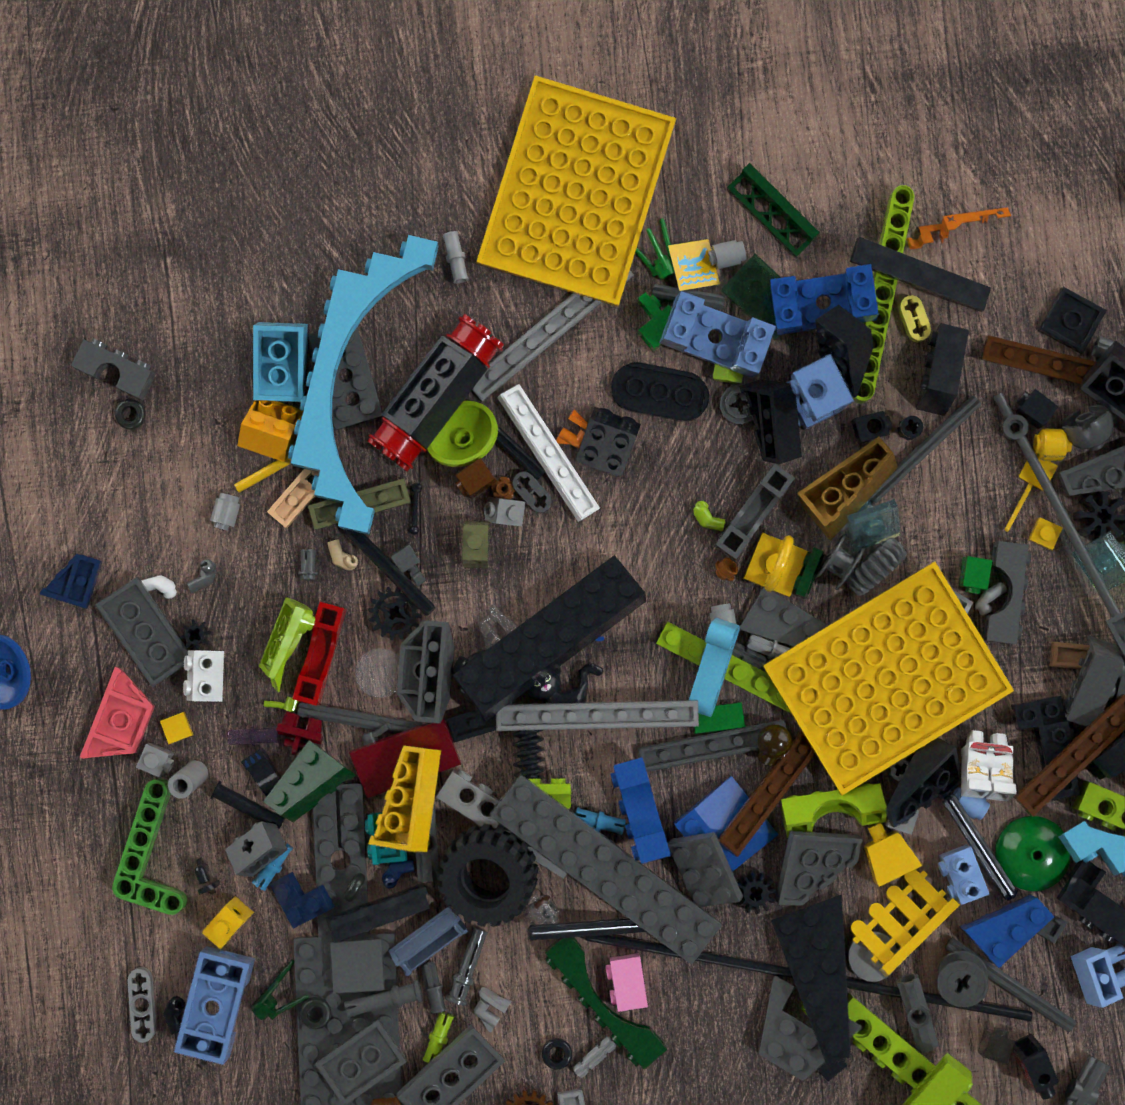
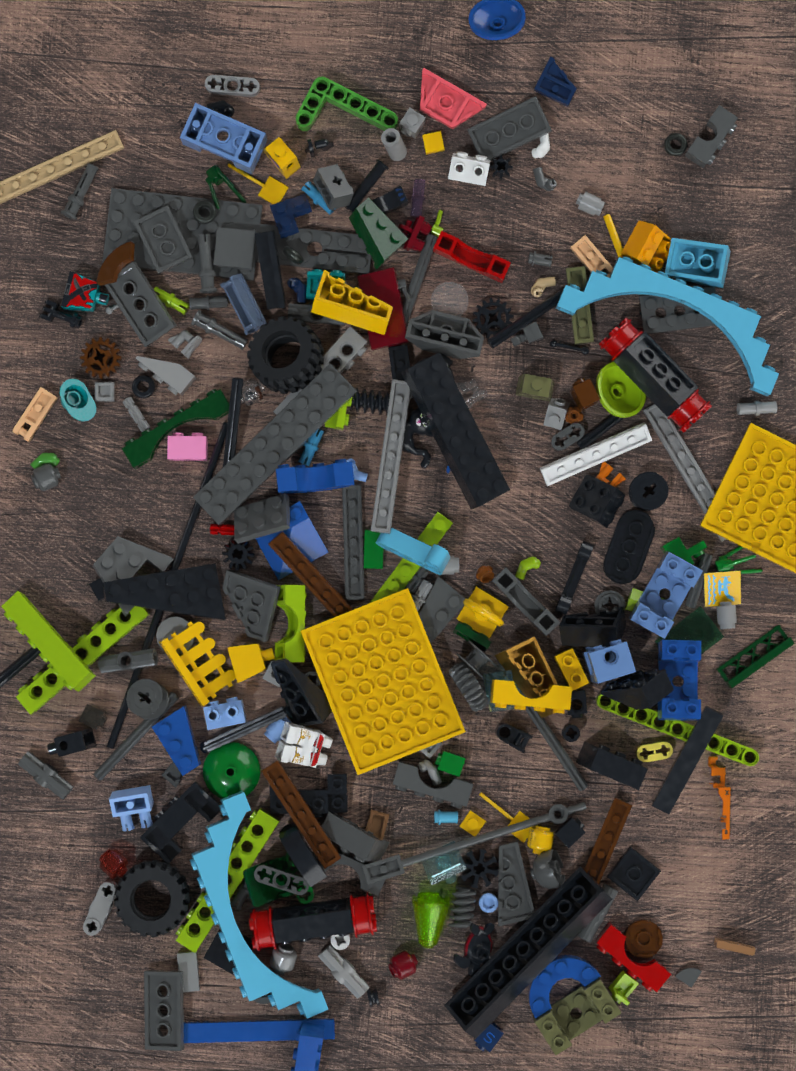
camera: 105 degrees right, 0 degrees up
(271, 928) = (271, 191): none -> yellow piece
(290, 625) = (498, 240): lime slope -> none
(535, 1018) = (171, 373): none -> light grey slope
(585, 363) = (645, 480): none -> black piece
(625, 755) = (358, 475): none -> light blue arm
(684, 448) = (572, 582): none -> black piece
(725, 917) = (223, 529): none -> red axle
(773, 743) = (347, 586): dark brown piece -> none
(830, 439) = (571, 669): none -> yellow brick
(875, 453) = (506, 693): none -> yellow arch
(927, 495) = (514, 737): none -> black piece
(1044, 569) = (445, 817): none -> medium azure pin

